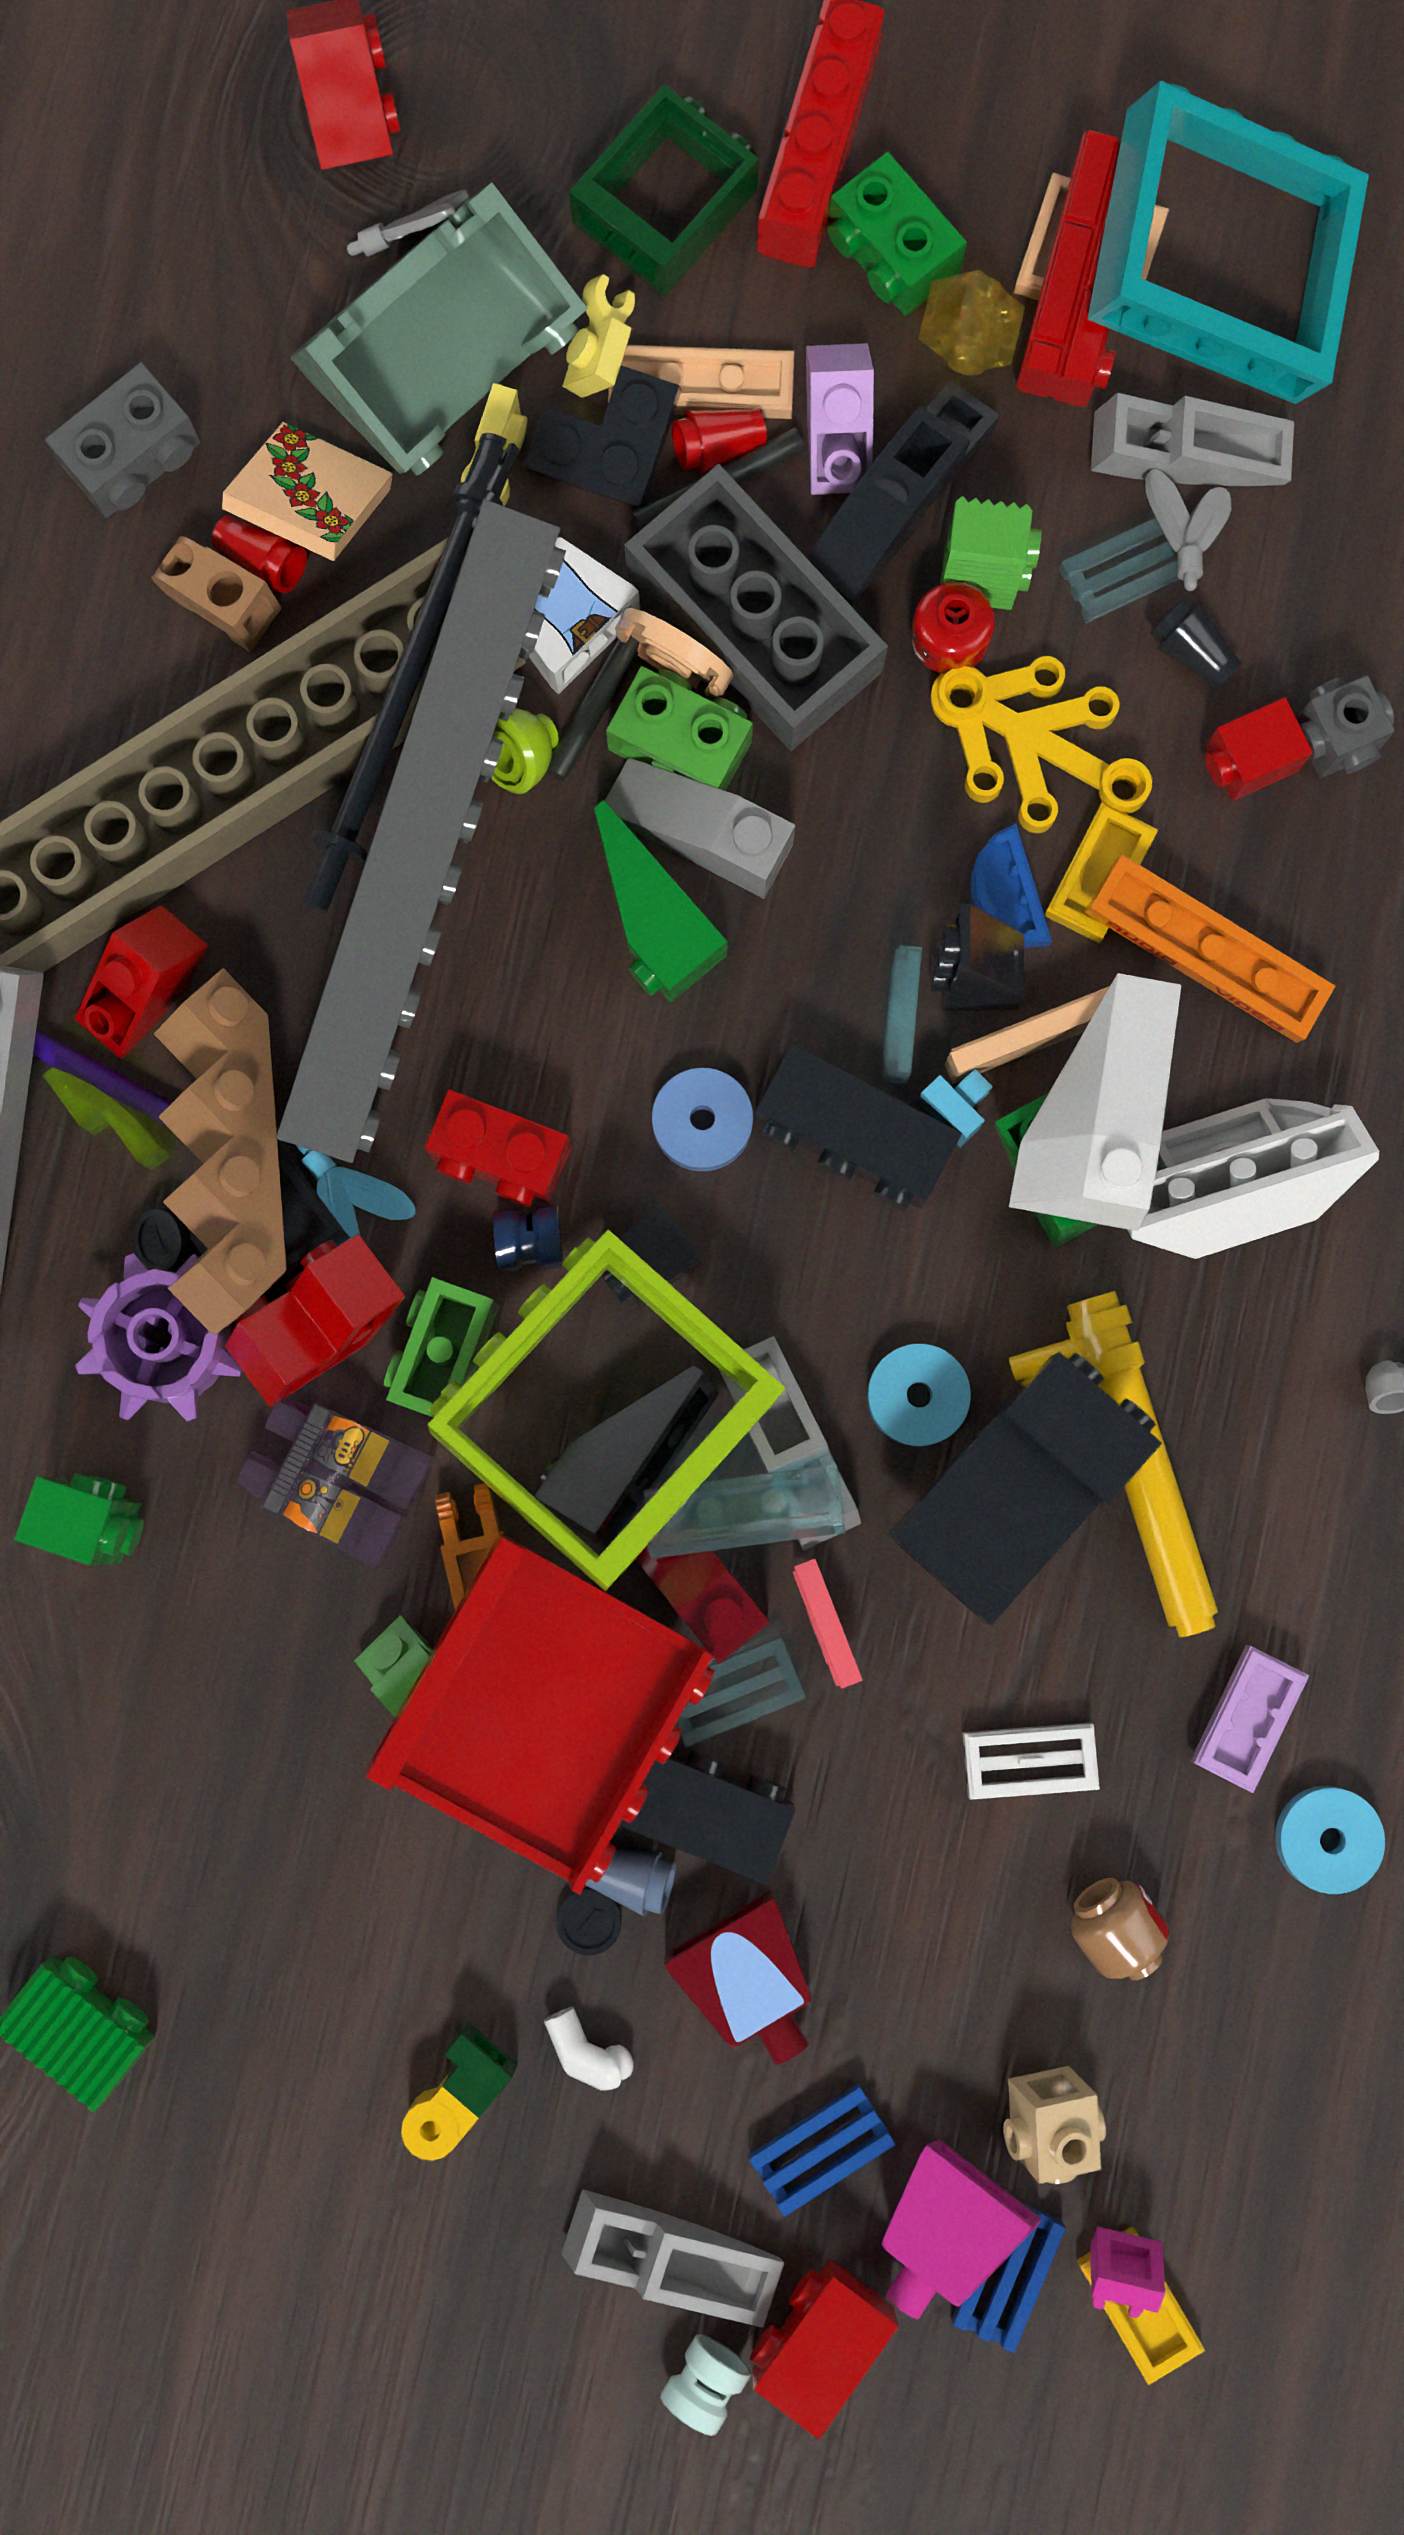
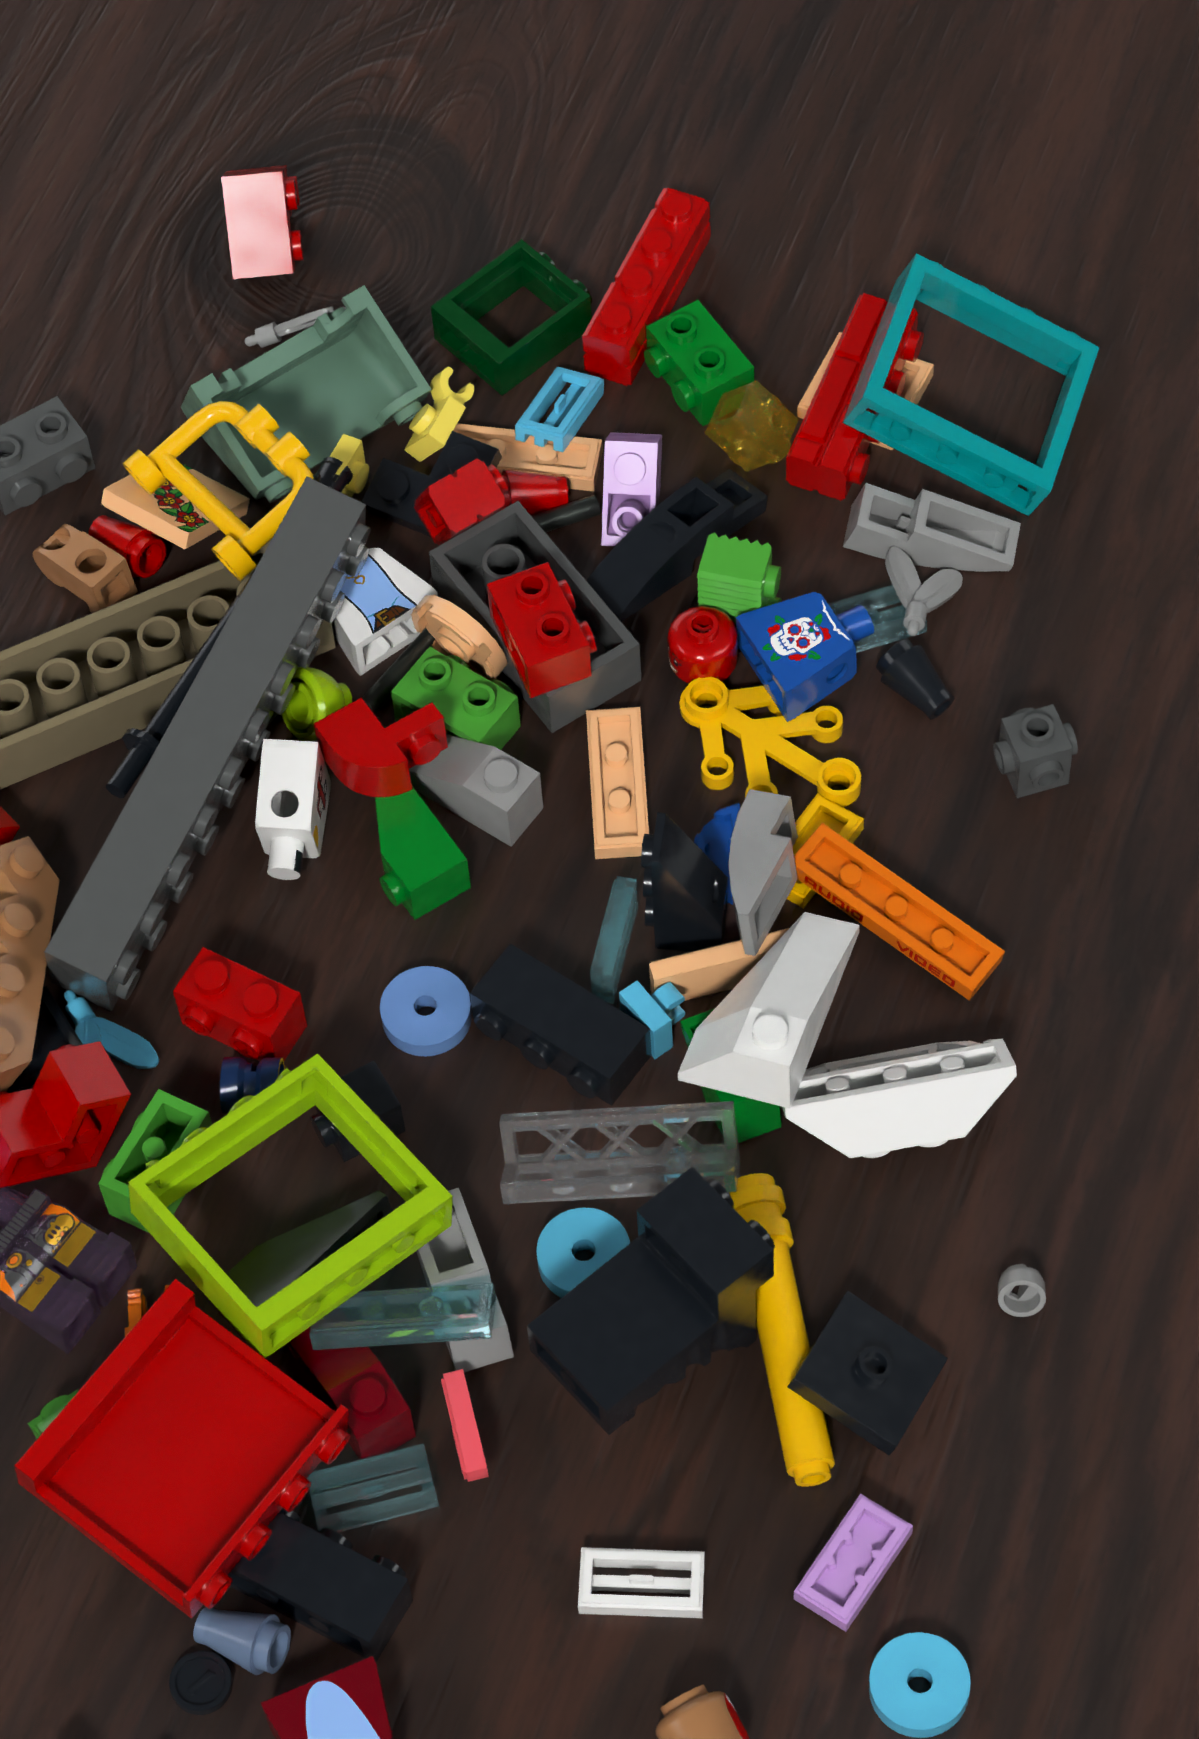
camera: 10 degrees right, 25 degrees down
(437, 437) = (257, 429): none -> yellow bar
(512, 864) = (291, 804): none -> white torso
(604, 831) = (378, 758): none -> red brick
(654, 474) = (461, 500): none -> red brick
(729, 351) = (568, 412): none -> medium azure tile
(776, 646) = (541, 629): none -> red brick
(874, 807) = (617, 781): none -> light nougat tile
(949, 1298) = (615, 1171): none -> clear fence
(1061, 918) = (761, 864): none -> light grey slope
(1069, 623) = (802, 649): none -> blue torso
(1244, 1510) = (868, 1373): none -> black plate
(1257, 750) = (957, 763): red brick -> none

